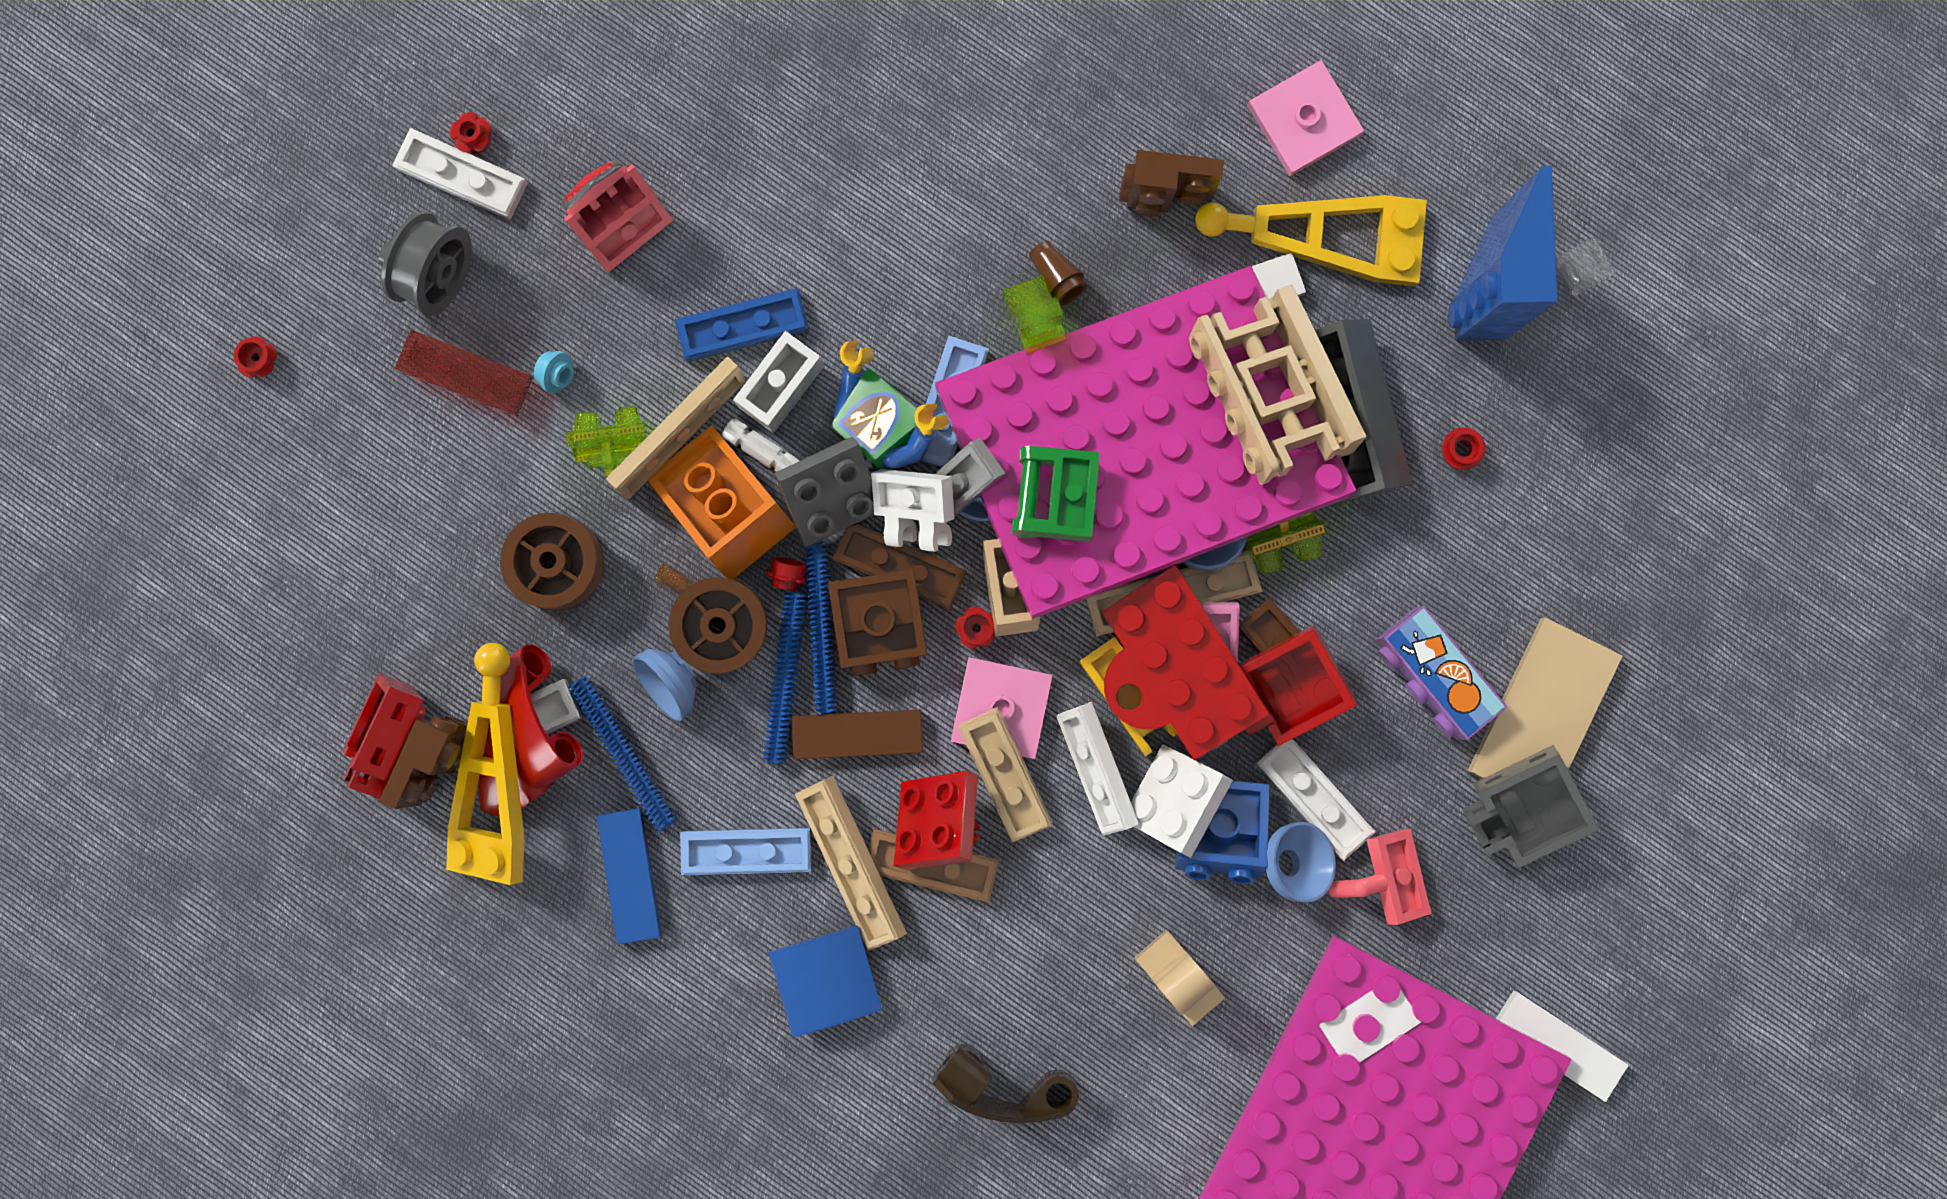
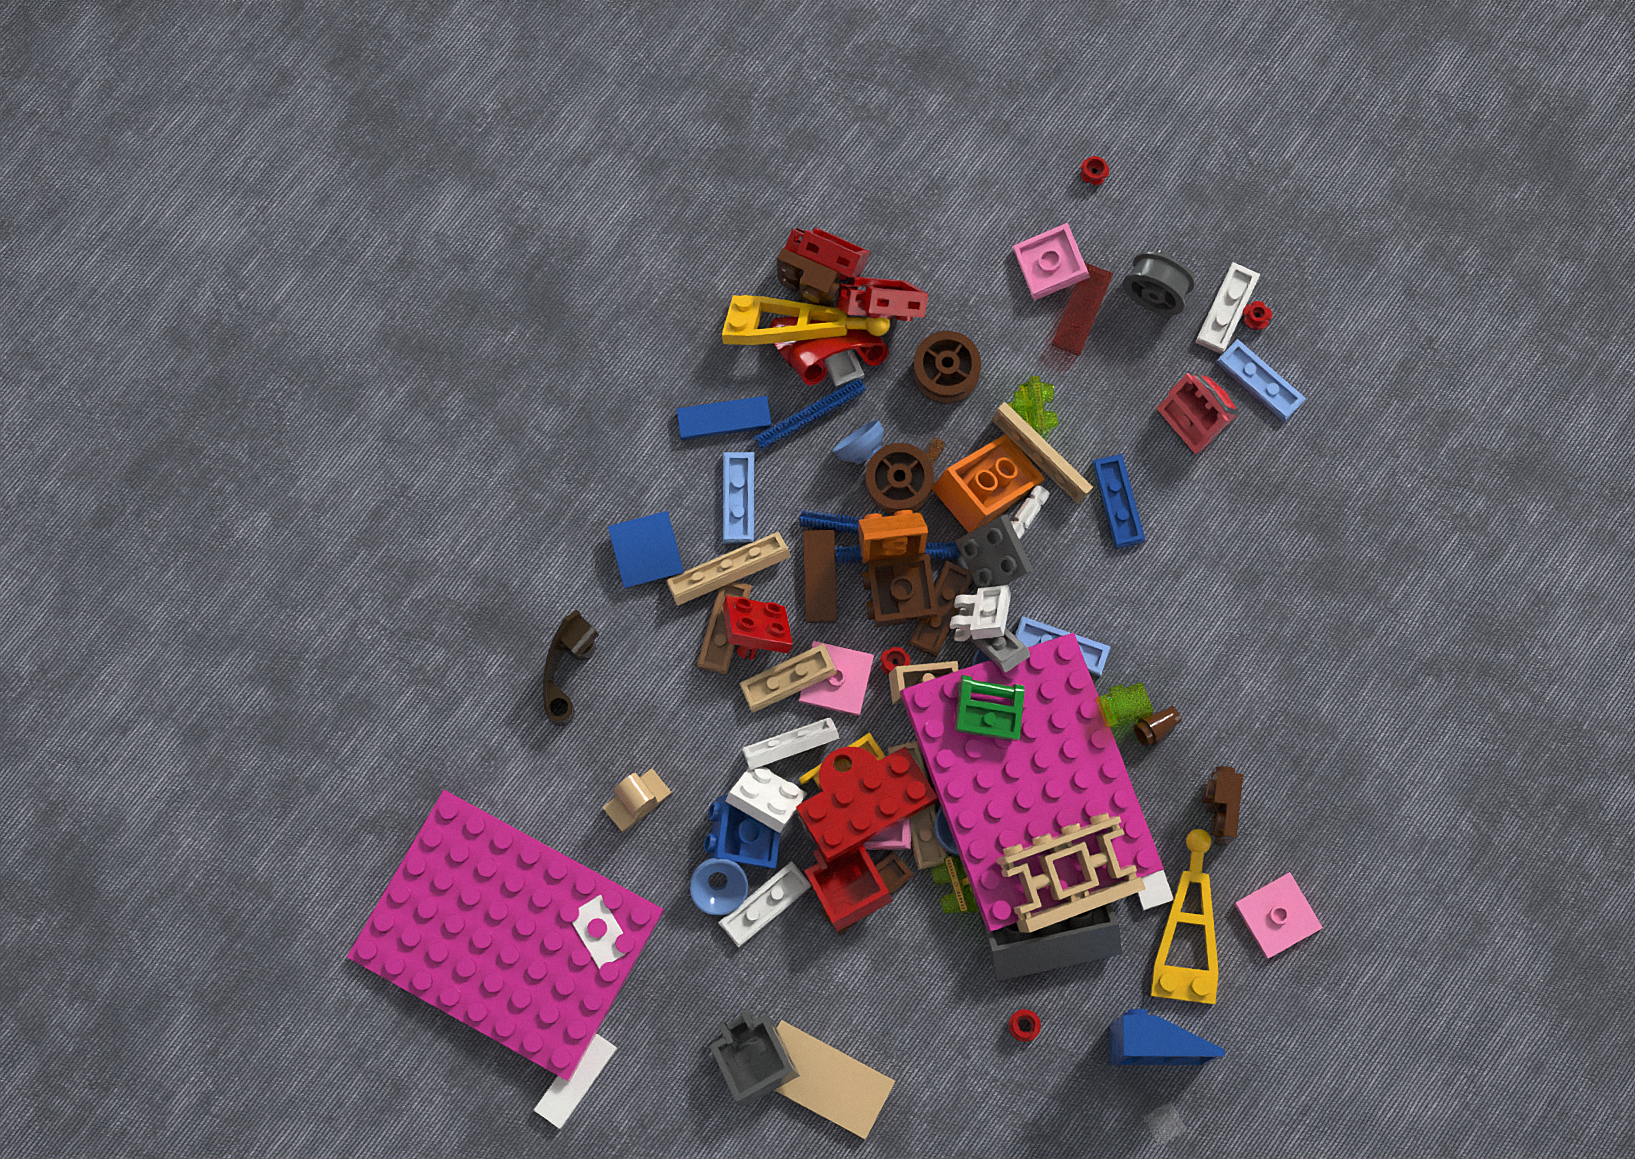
camera: 90 degrees right, 10 degrees down
(393, 417) = (1050, 261): none -> bright pink plate
(461, 660) = (882, 298): none -> red piece
(554, 371) = (1083, 370): medium azure plate -> none
(565, 130) = (1260, 380): none -> light blue tile
(779, 382) = (1074, 523): white brick -> none
(786, 573) = (937, 528): red plate -> none
(804, 633) = (892, 535): none -> orange slope
(878, 417) = (1049, 591): torso -> none
(1395, 878) = (704, 959): coral plate -> none
(1439, 674) = (854, 996): brick -> none

